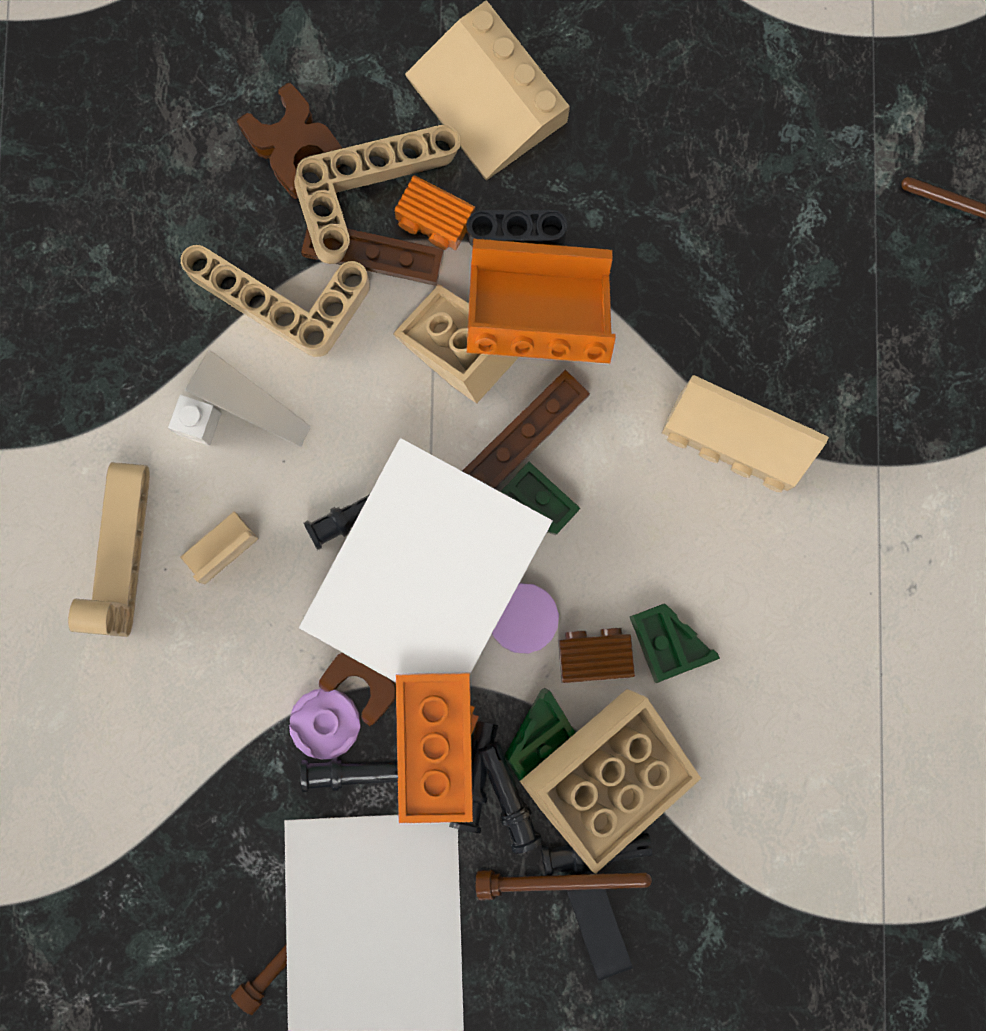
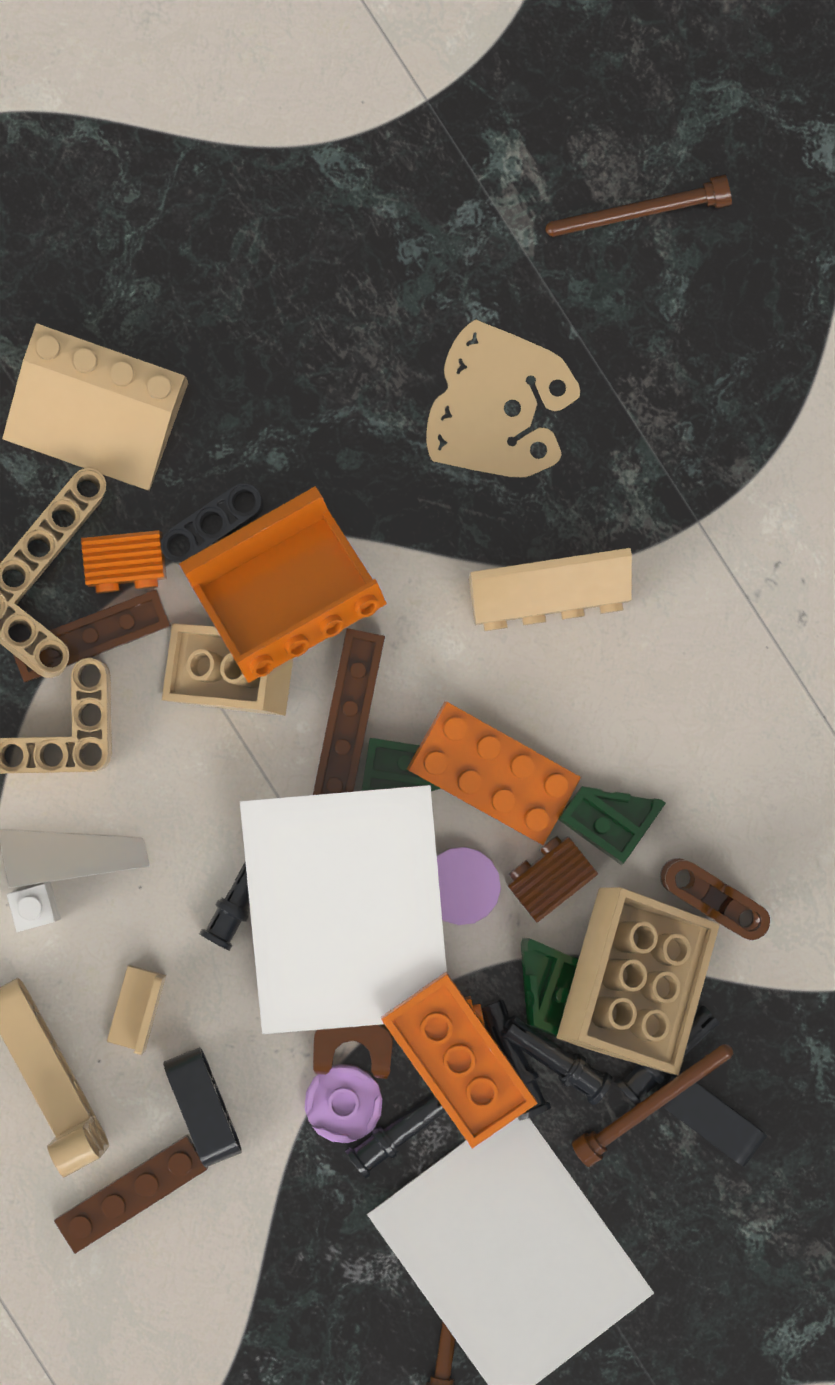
camera: 35 degrees left, 5 degrees up
(119, 684) = (130, 1194): none -> reddish brown plate
(217, 654) = (202, 1107): none -> black beam
(604, 549) = (493, 773): none -> orange plate
(713, 756) = (715, 899): none -> reddish brown piece
(773, 268) = (477, 399): none -> tan piece

